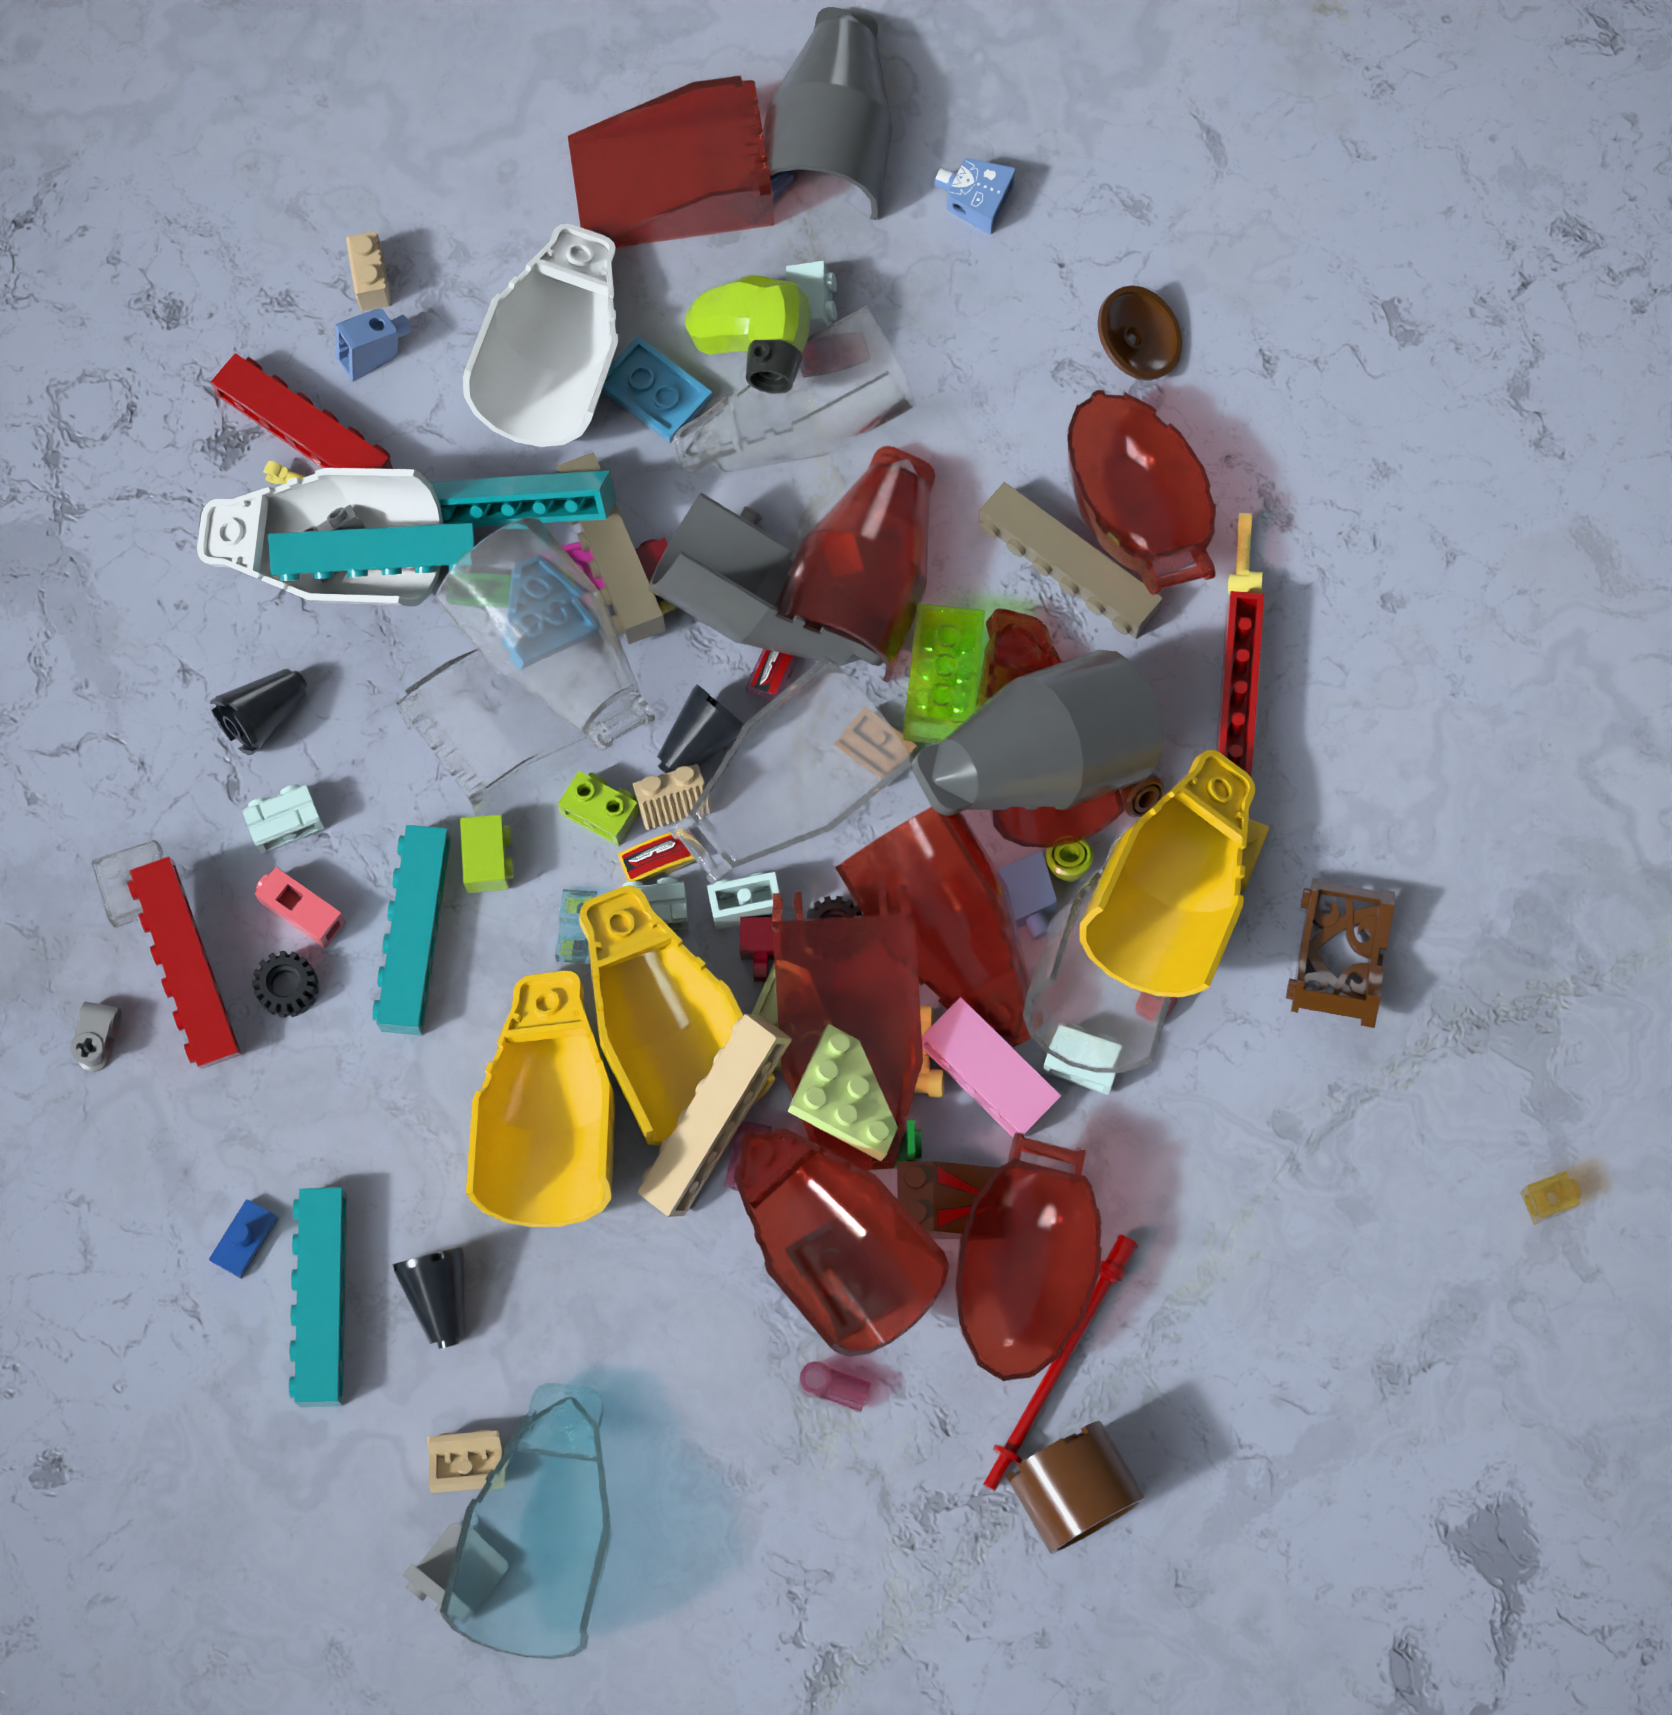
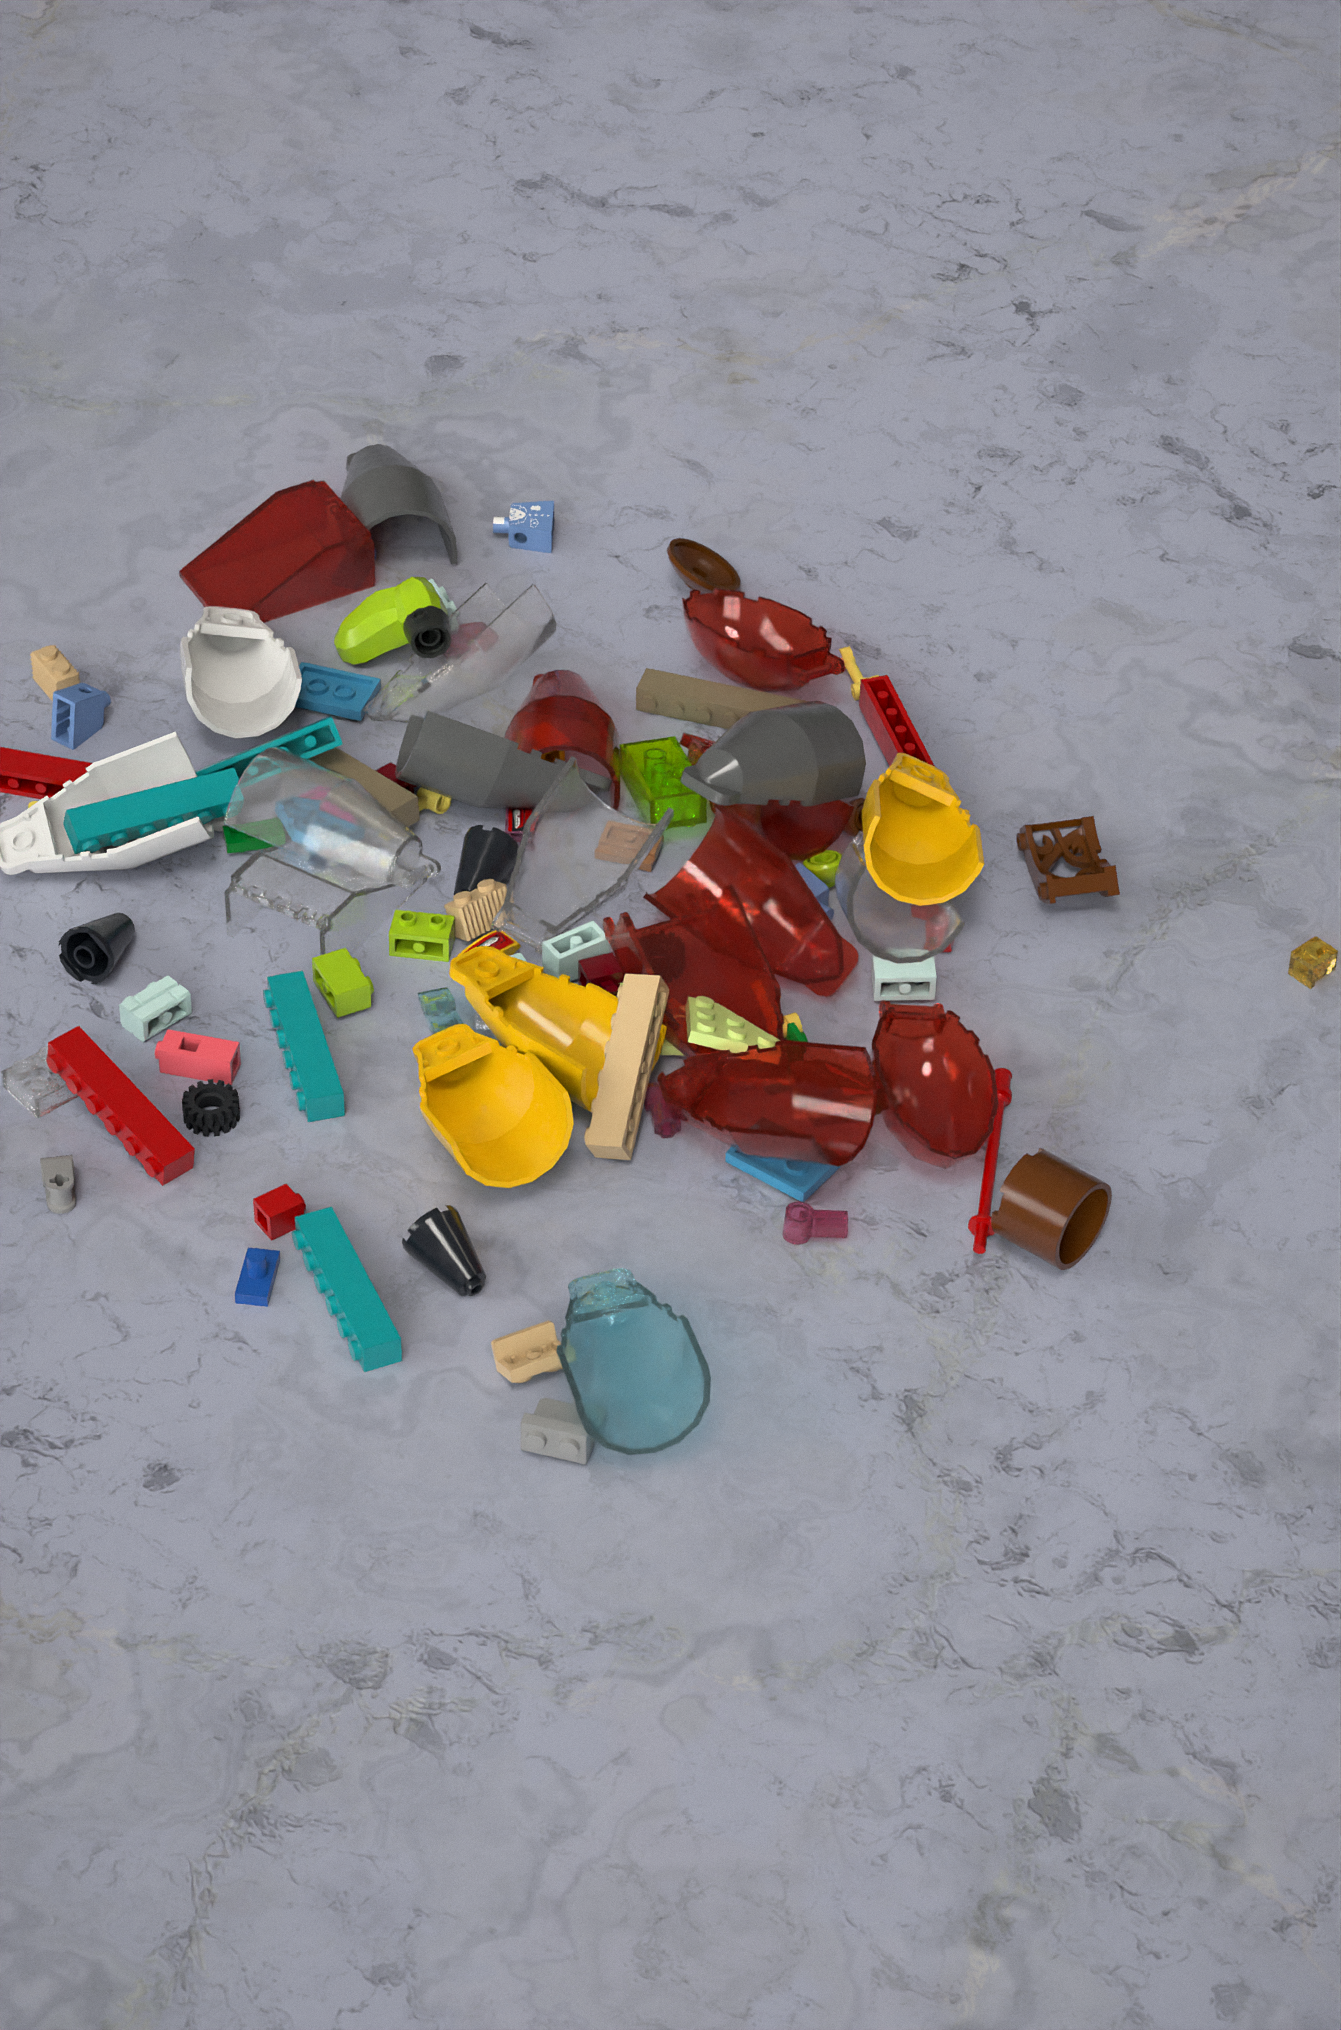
camera: 25 degrees left, 30 degrees down
(295, 1162) = (277, 1211): none -> red brick
(988, 1068) = (830, 998): bright pink brick -> none

